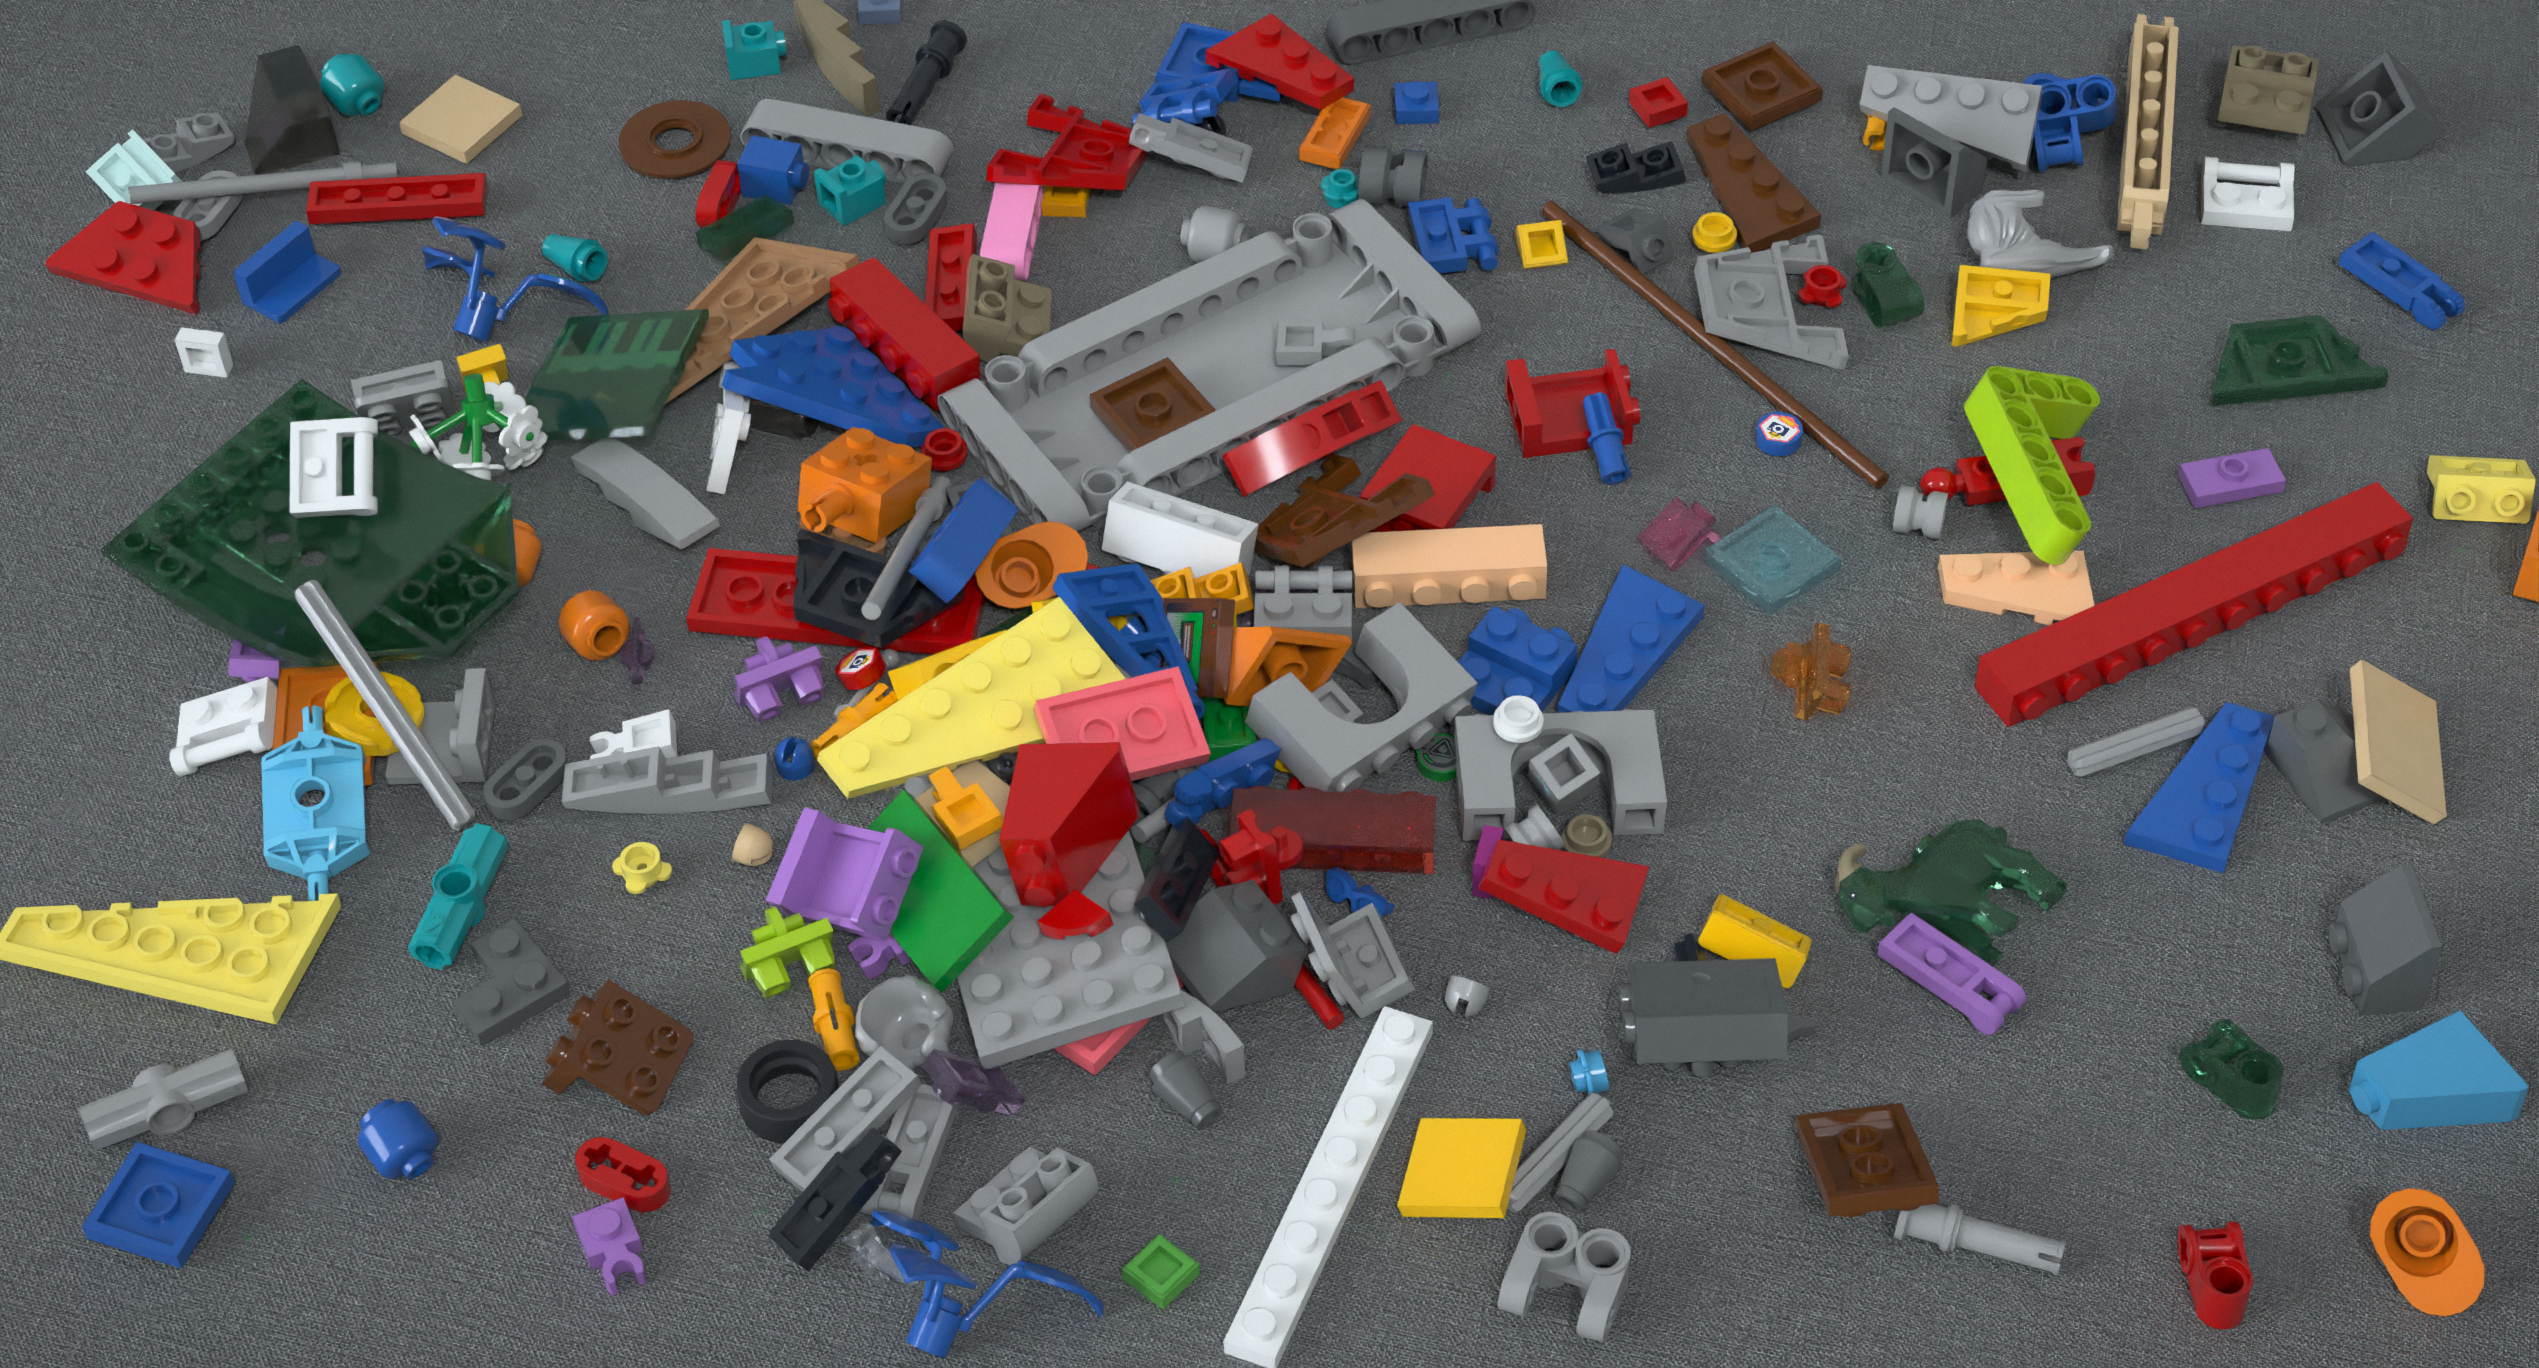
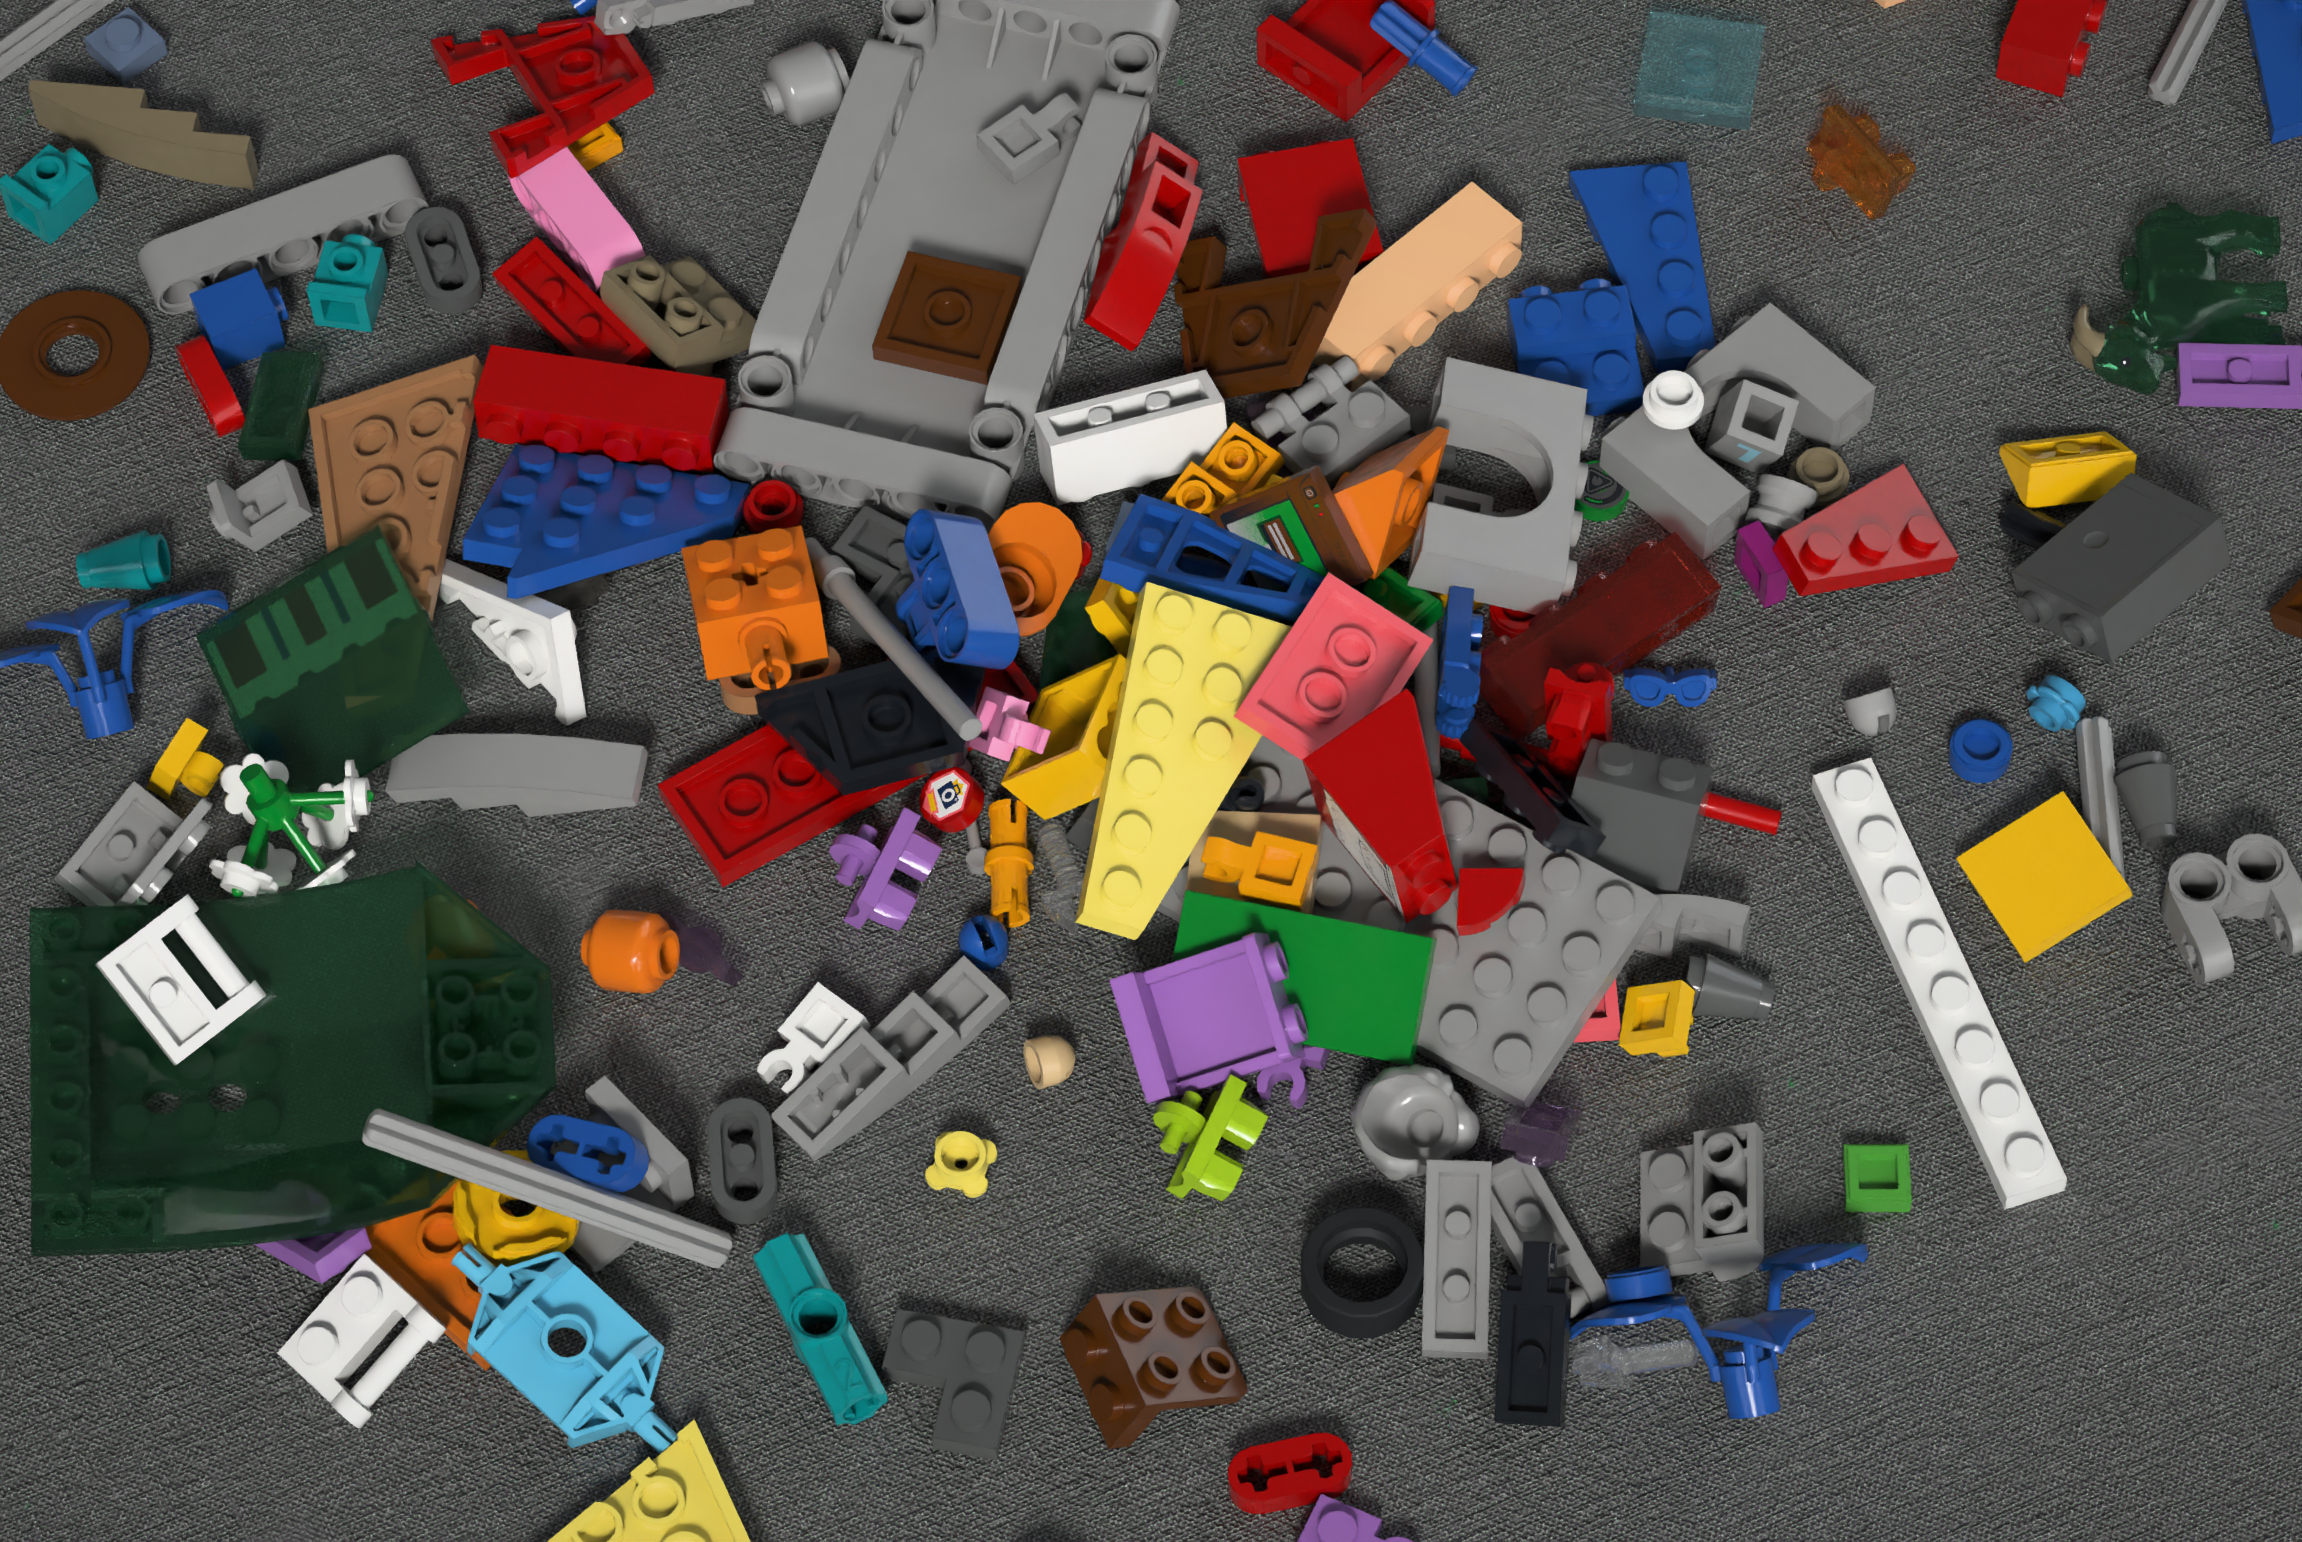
camera: 40 degrees left, 10 degrees up
(429, 702) = (591, 1140): none -> blue beam
(671, 273) = (261, 507): none -> light grey bracket
(826, 996) = (1322, 1169): light orange pin -> none
(918, 639) = (1006, 726): none -> bright pink plate
(932, 62) = (274, 79): black pin -> none
(934, 1215) = (1638, 1283): none -> blue tile
(1120, 1073) = (1657, 1019): none -> yellow tile
(1354, 957) = (1749, 742): light grey bracket -> none
(1513, 1069) = (1980, 750): none -> blue tile
(1679, 532) = (1588, 102): clear pink bracket -> none

